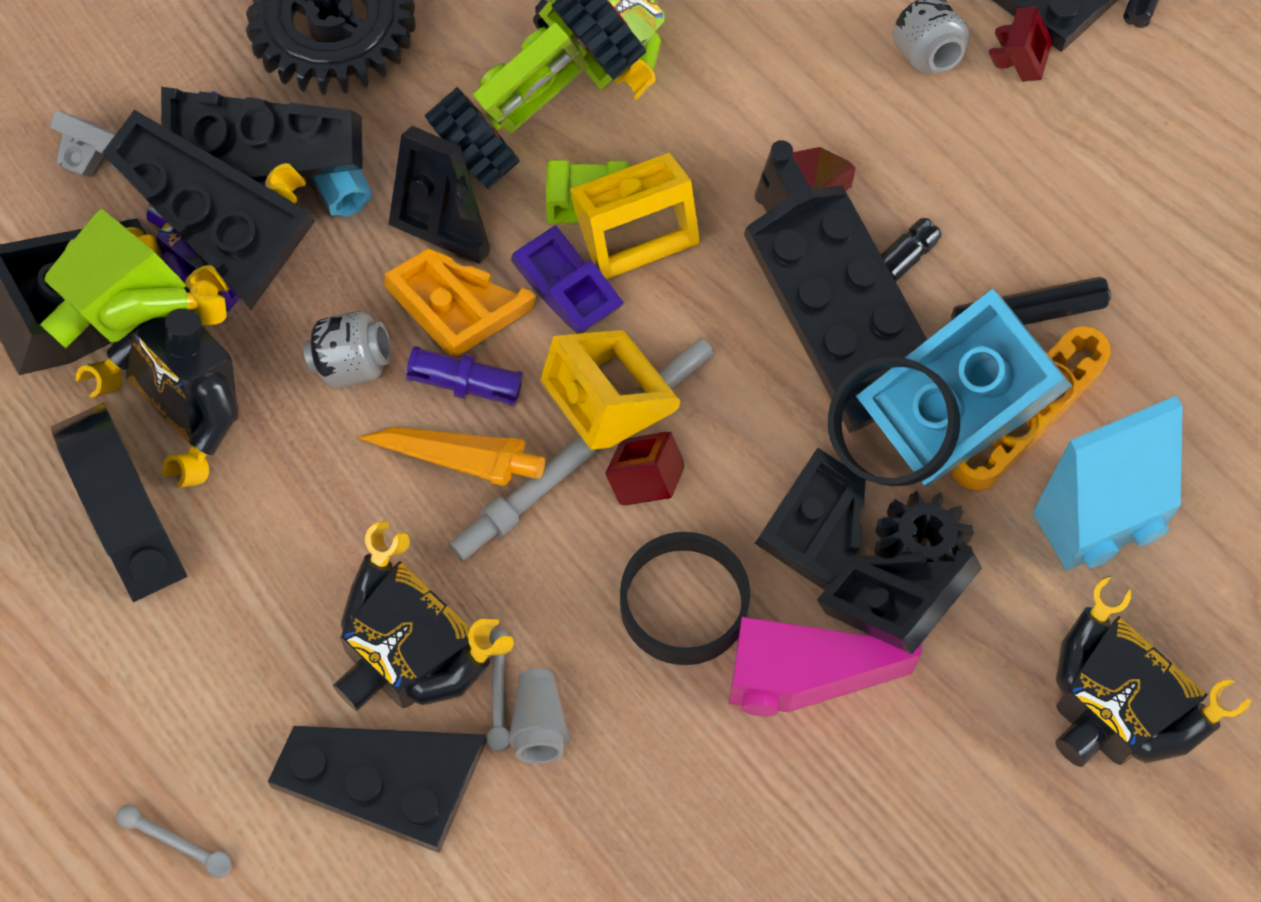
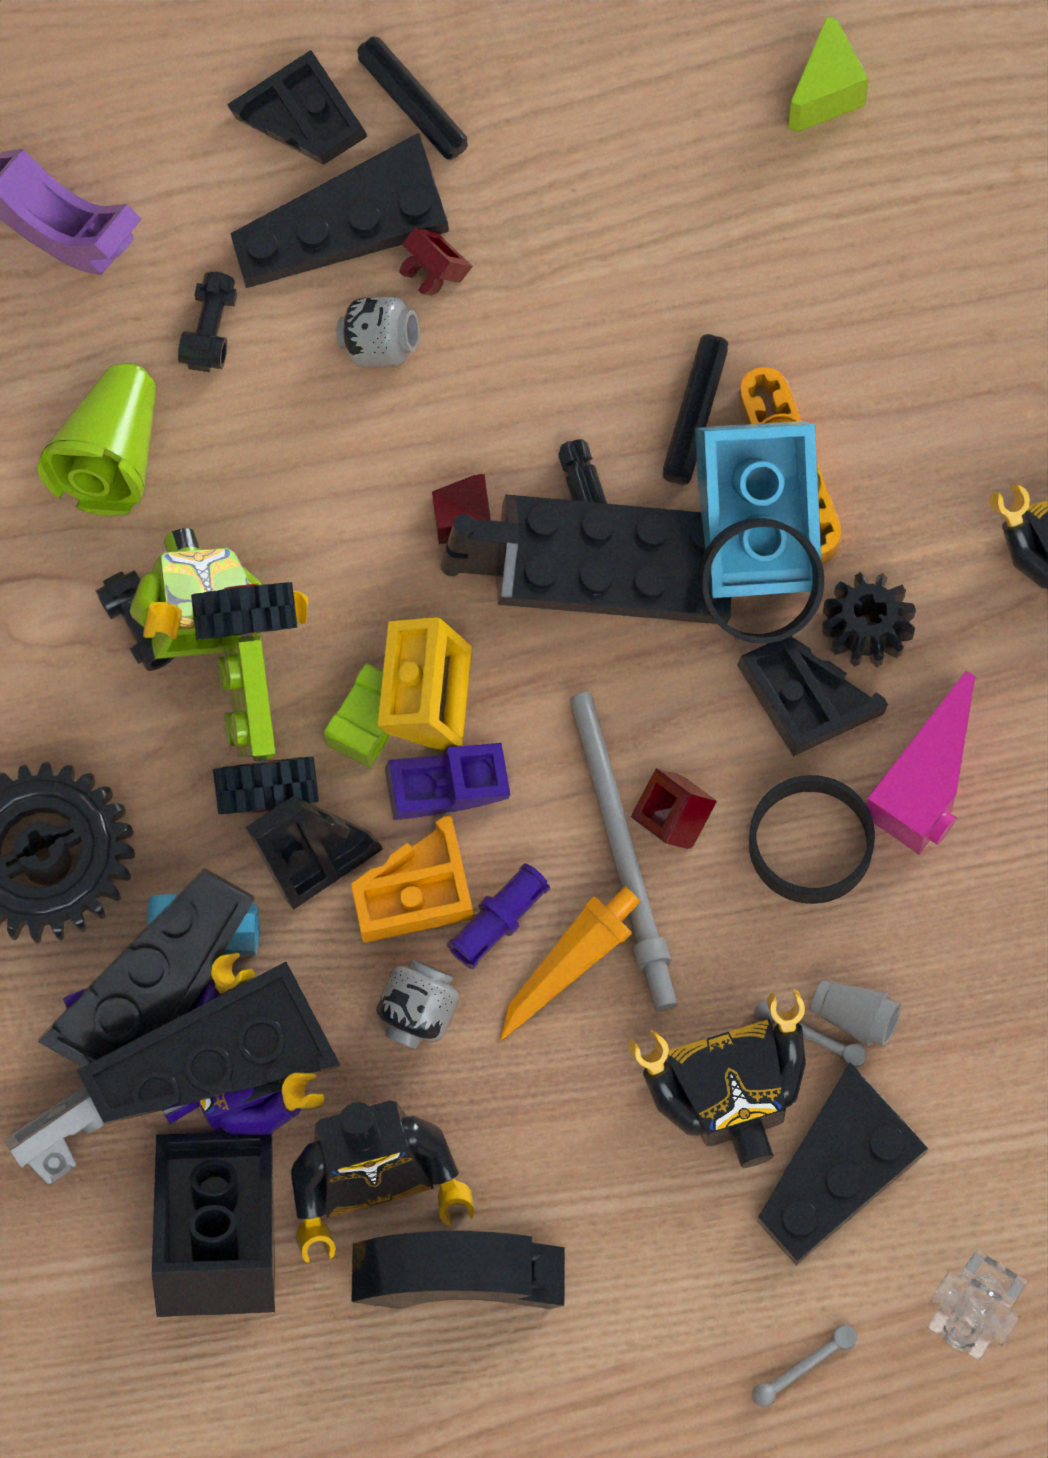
camera: 55 degrees left, 5 degrees up
(119, 281) = (269, 1163): lime torso -> none
(590, 399) = (582, 818): yellow tile -> none
(899, 595) = (919, 665): black wing -> none
(1115, 487) = (919, 447): medium azure slope -> none

